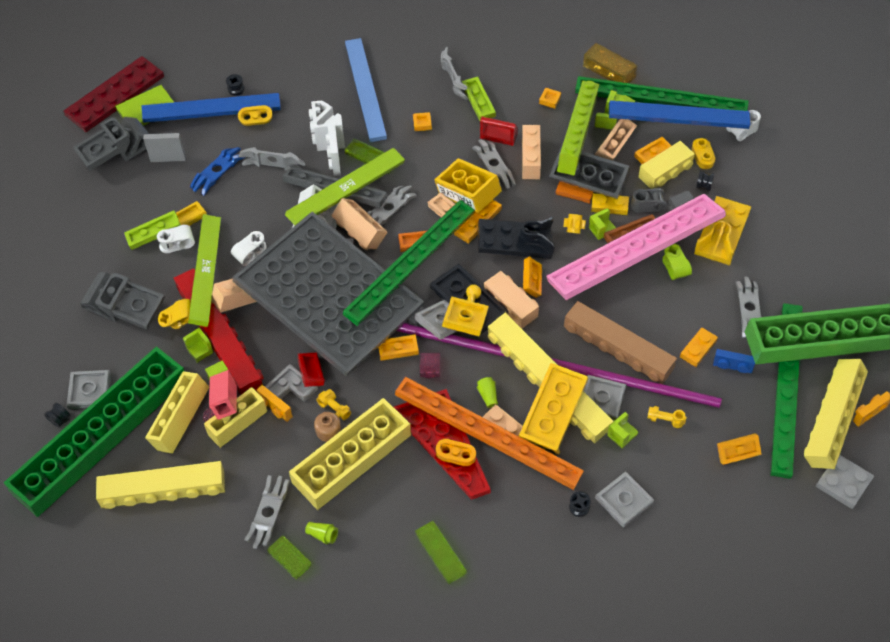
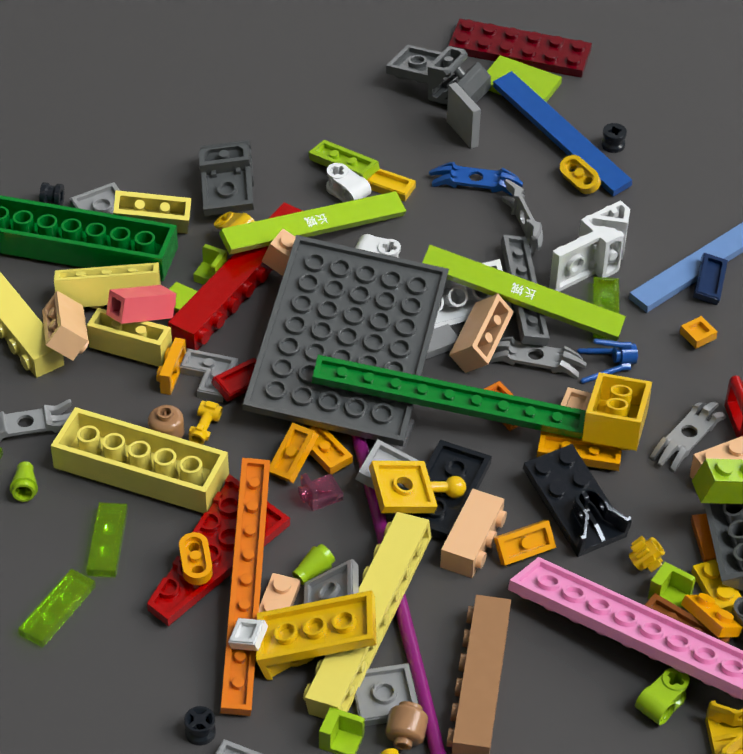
camera: 60 degrees right, 10 degrees down
(126, 357) = (154, 208): none -> light yellow brick
(204, 451) = (65, 326): none -> light nougat brick
(384, 96) = (710, 278): none -> dark blue tile
(394, 364) = (293, 452): none -> light orange plate
(399, 501) = (107, 539): none -> clear neon green tile
(416, 165) = (622, 353): none -> blue plant
(520, 389) = (334, 583): none -> light grey tile
(535, 446) = (248, 634): none -> white tile
(637, 393) = (406, 725): none -> medium nougat head
(639, 213) = (711, 615): none -> light orange plate

